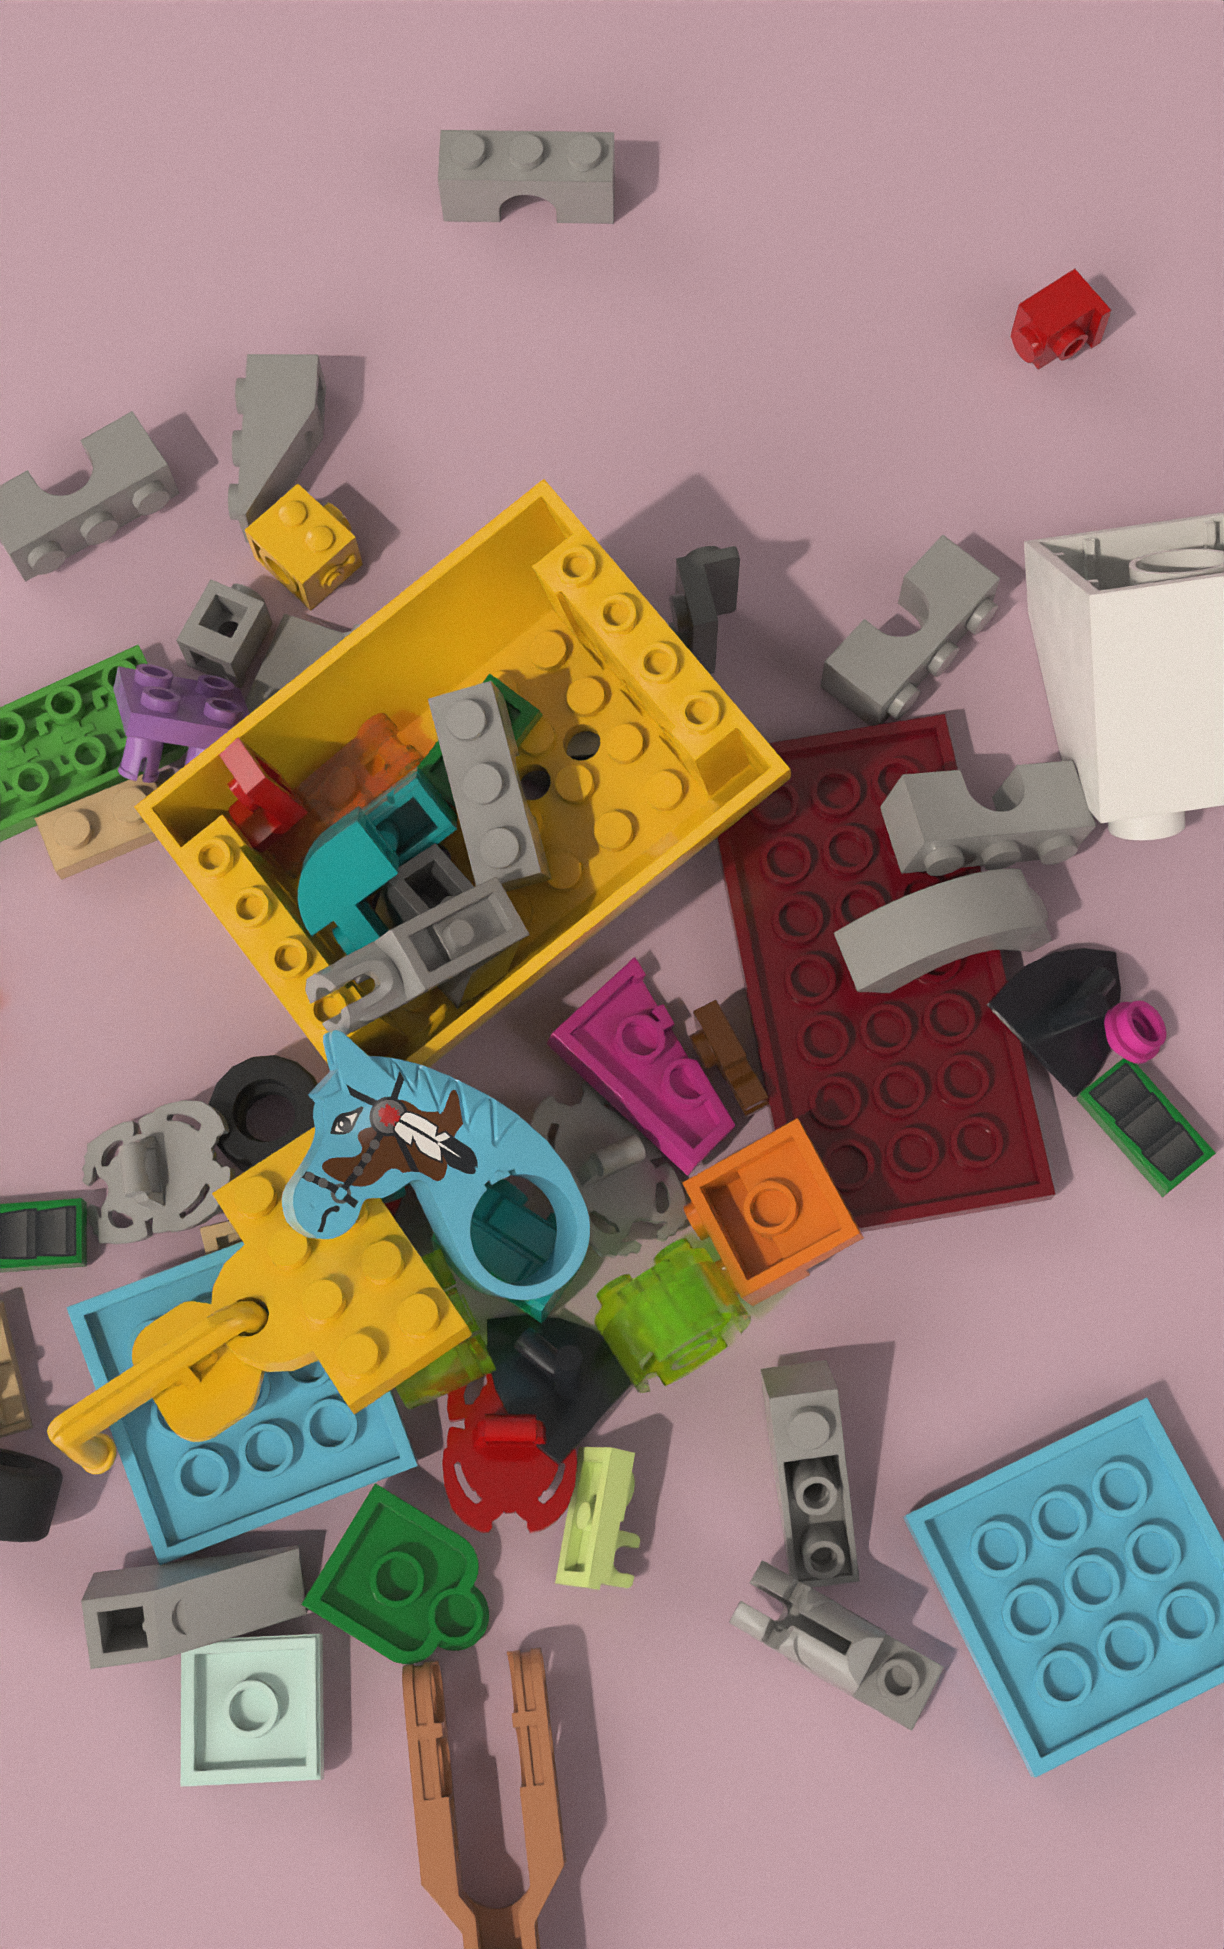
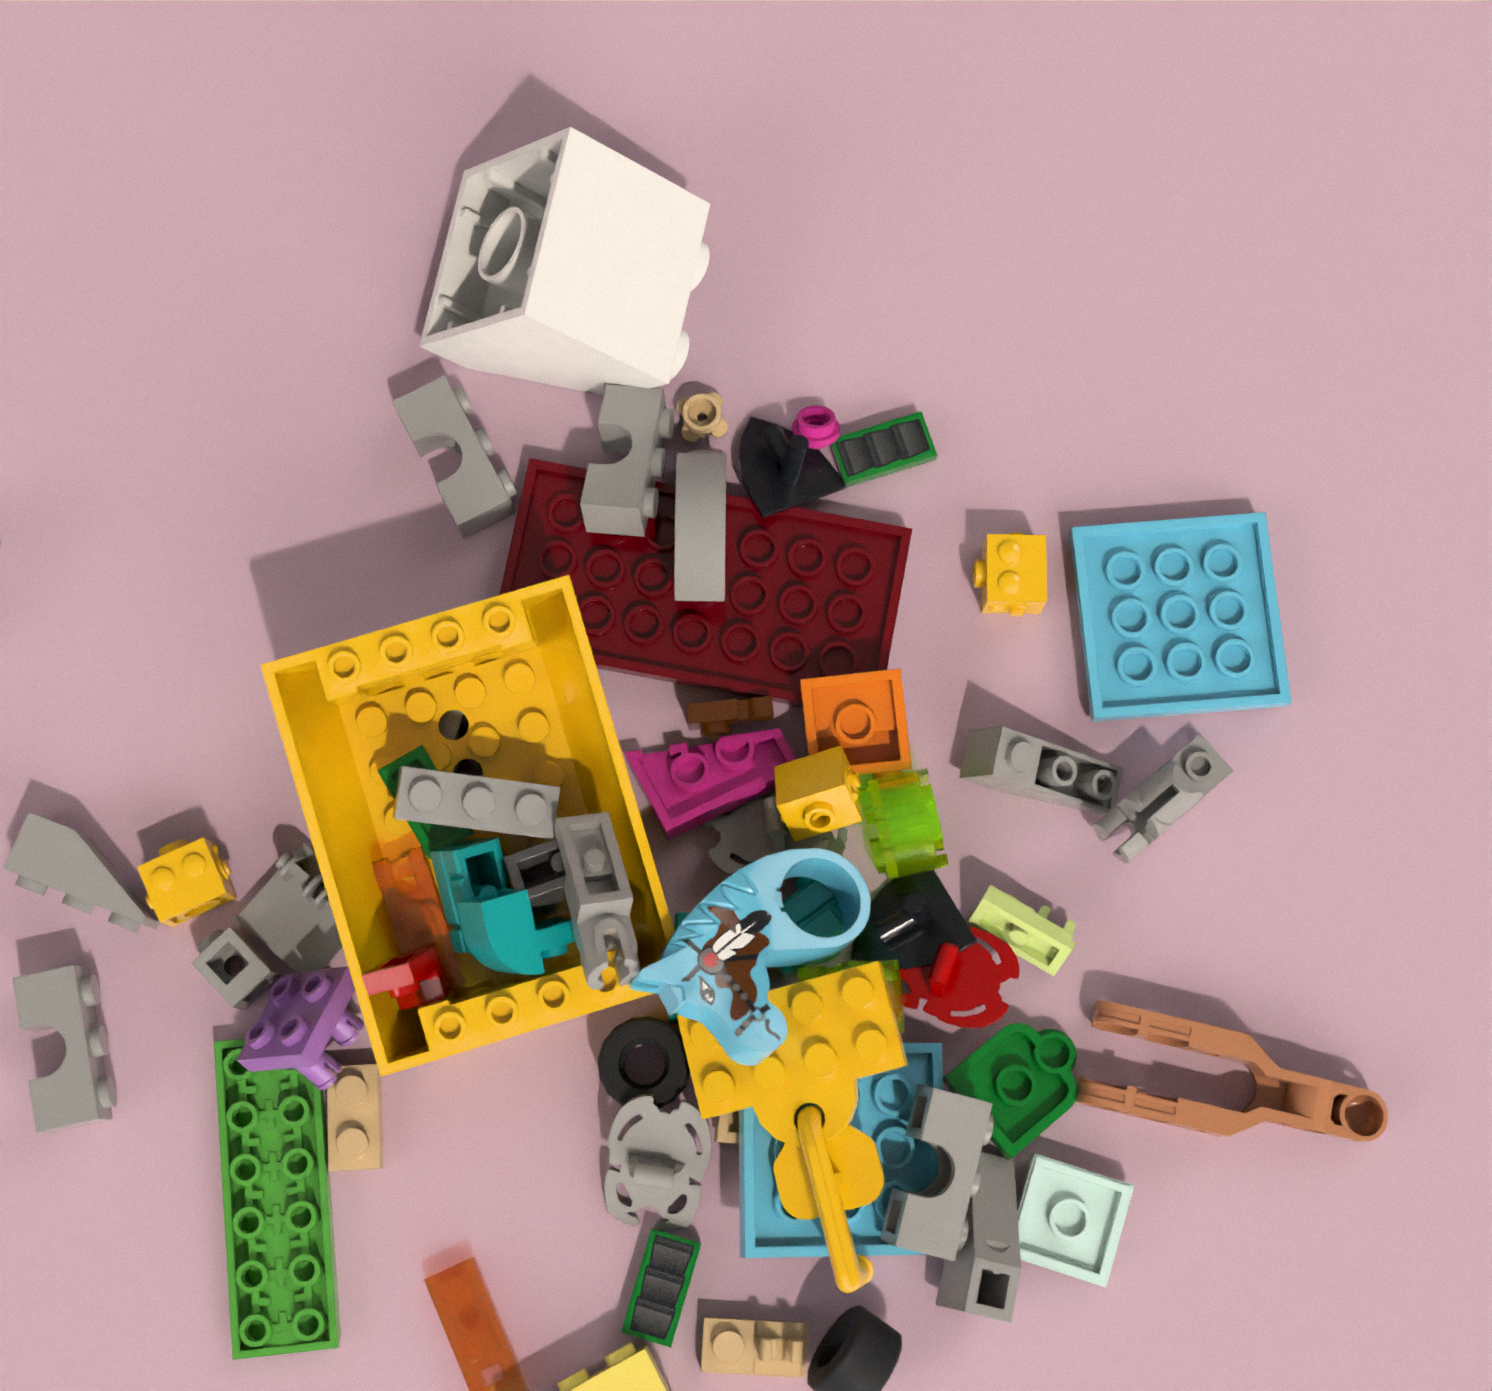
camera: 75 degrees left, 5 degrees up
(187, 1521) = (934, 1217): none -> light grey arch
(662, 1190) = (817, 793): none -> yellow head
(704, 590) = (371, 601): dark grey bracket -> none
(1051, 1342) = (1012, 574): none -> yellow head
(1059, 321) = (248, 246): red brick -> none
(1094, 877) = (707, 404): none -> tan plate

